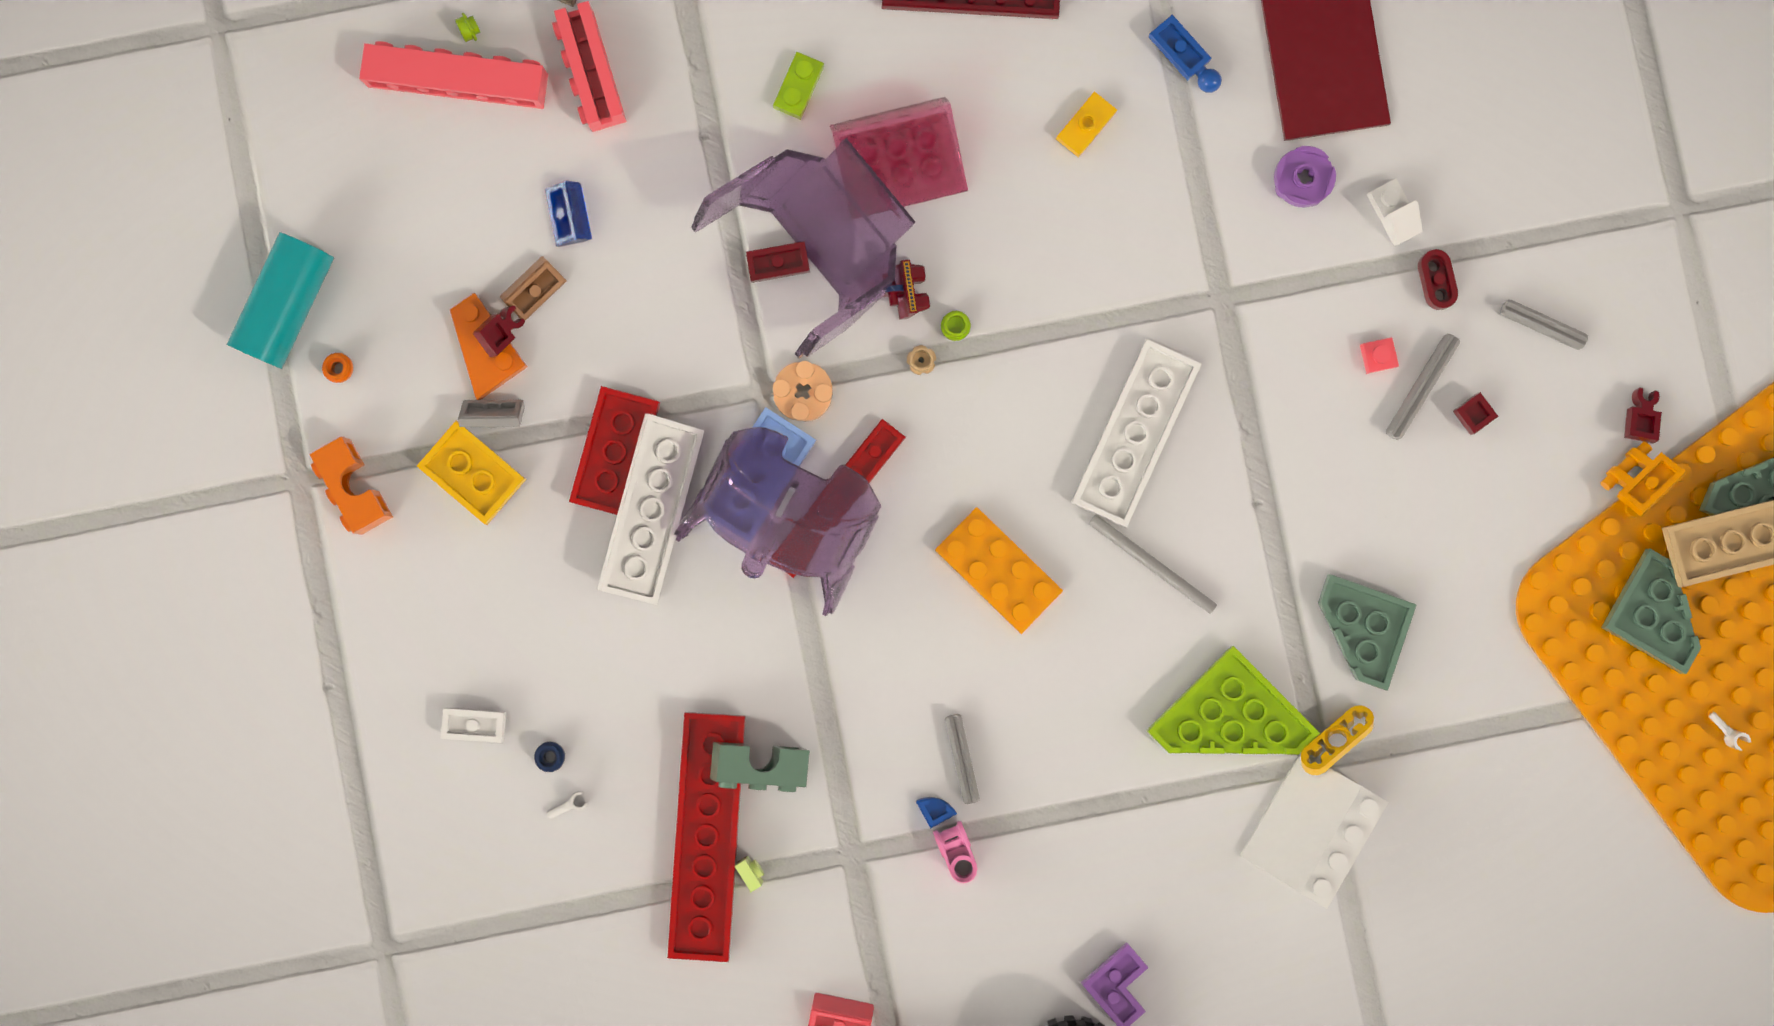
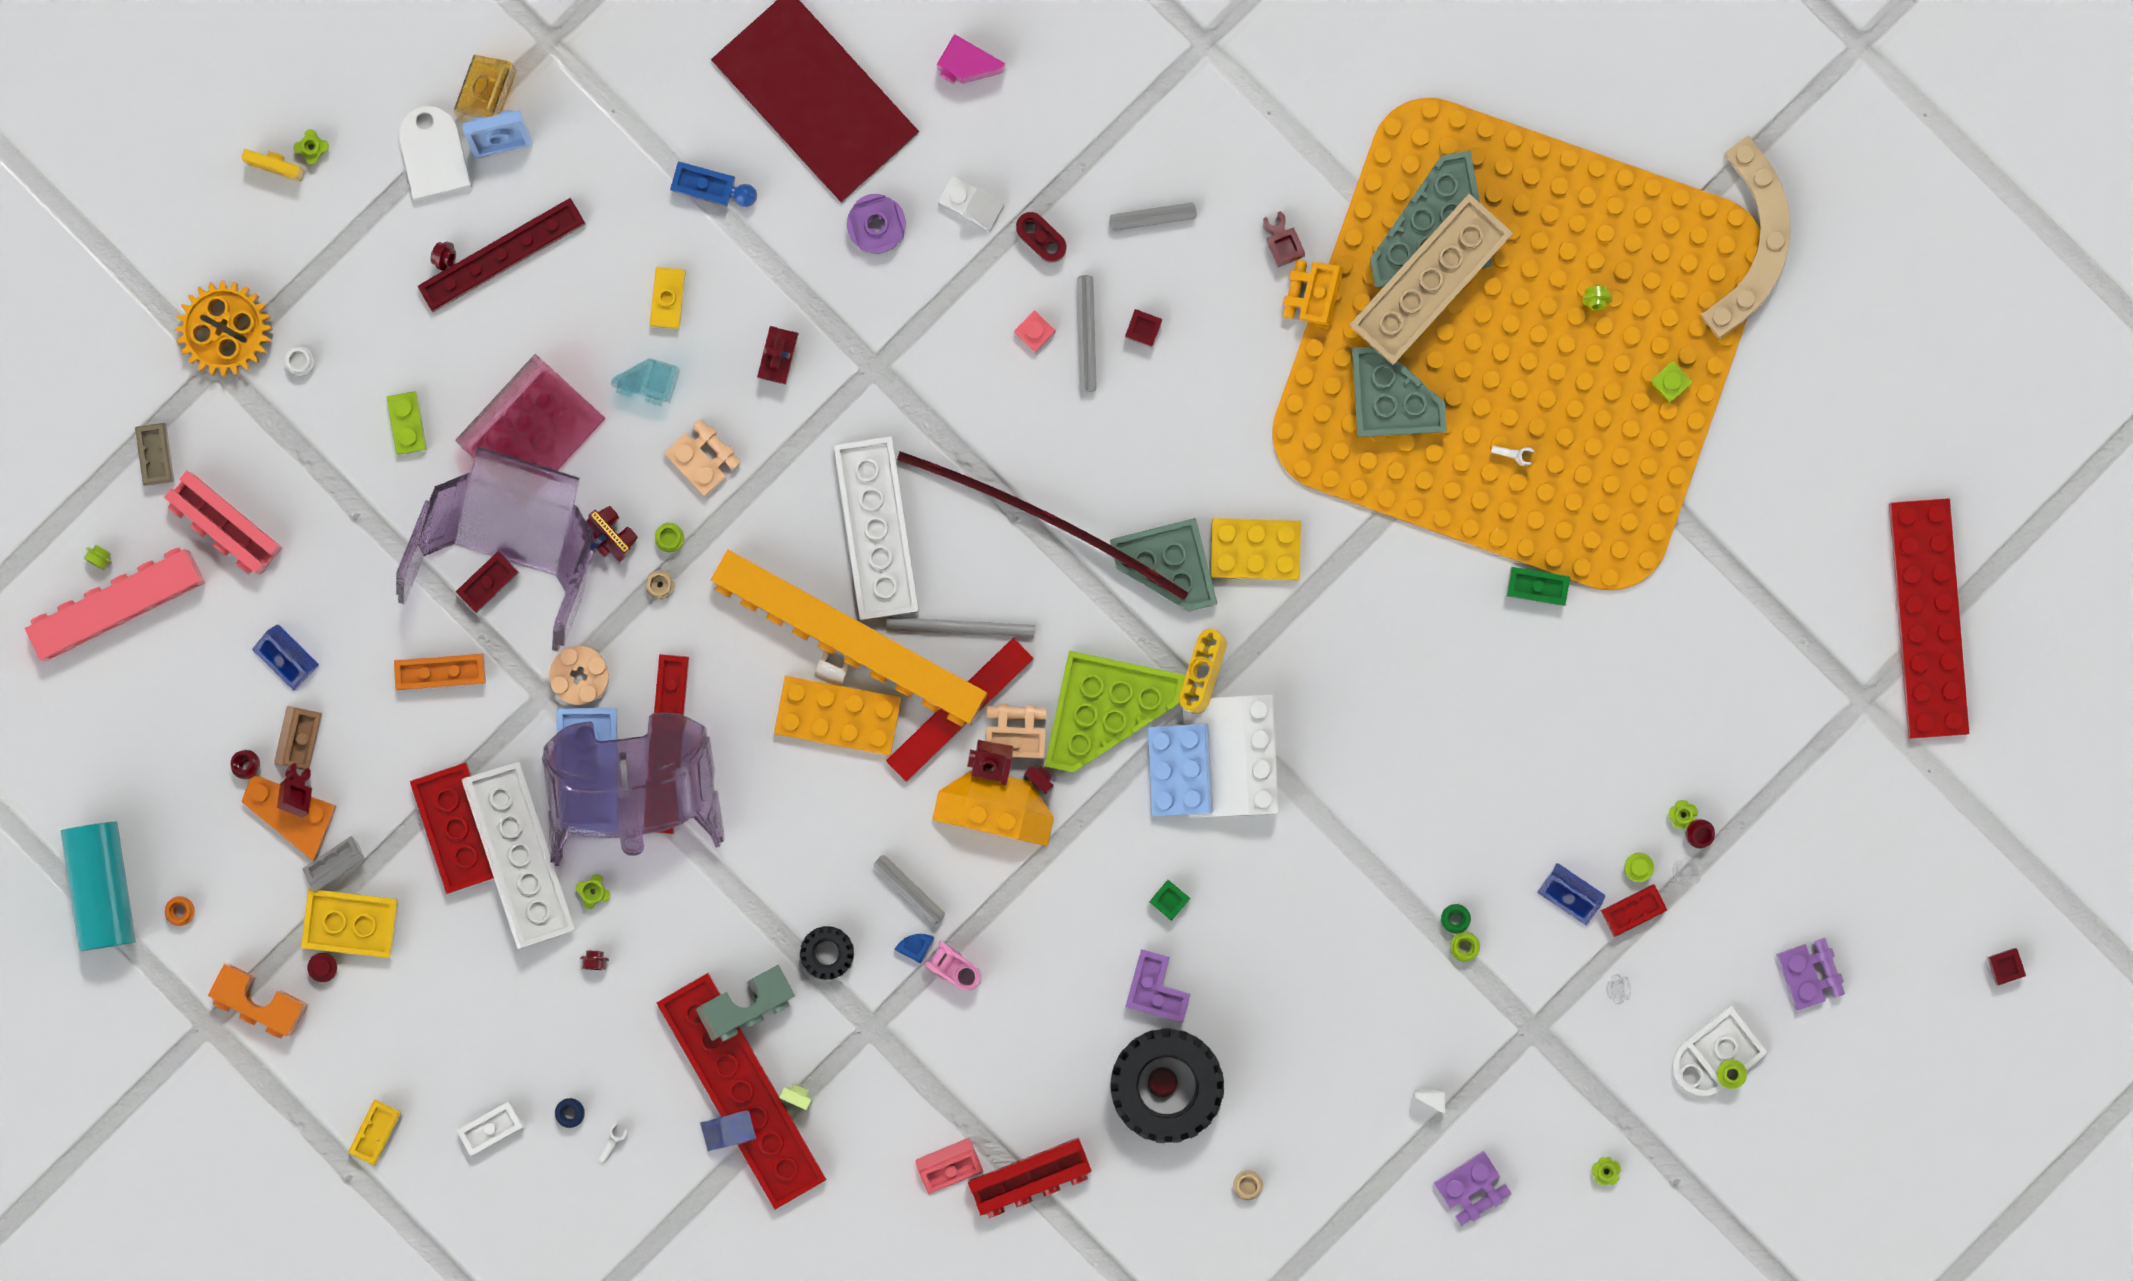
camera: 35 degrees left, 0 degrees up
(374, 663) = (374, 1132): none -> yellow plate
(424, 494) = (322, 967): none -> dark red plate
(472, 274) = (238, 761): none -> dark red plate
(655, 641) = (594, 960): none -> dark red plate
(672, 864) = (728, 1130): none -> clear blue slope
(687, 587) = (594, 883): none -> lime plate
(688, 311) = (439, 672): none -> orange plate
(851, 784) = (844, 946): none -> black tyre
(1018, 278) = (695, 463): none -> light nougat plate
(1024, 525) = (832, 668): none -> white slope
(1026, 180) = (650, 379): none -> clear light blue slope
(1054, 512) = (849, 637): none -> light orange brick
(1082, 737) = (994, 808): none -> light orange wedge
(1106, 634) = (939, 730): none -> red tile
(1107, 688) = (991, 761): none -> dark red brick
(1135, 692) = (1026, 741): none -> light nougat plate
(1137, 739) = (1040, 778): none -> dark red plate
(1149, 232) = (778, 355): none -> dark red hips
(1179, 917) = (1169, 900): none -> green plate
(1262, 811) = (1180, 770): none -> light blue plate
(1289, 520) = (1045, 516): none -> dark red piece
(1448, 664) = (1255, 549): none -> yellow plate
(1473, 92) = (967, 62): none -> dark pink slope
(1673, 858) = (1538, 586): none -> green plate

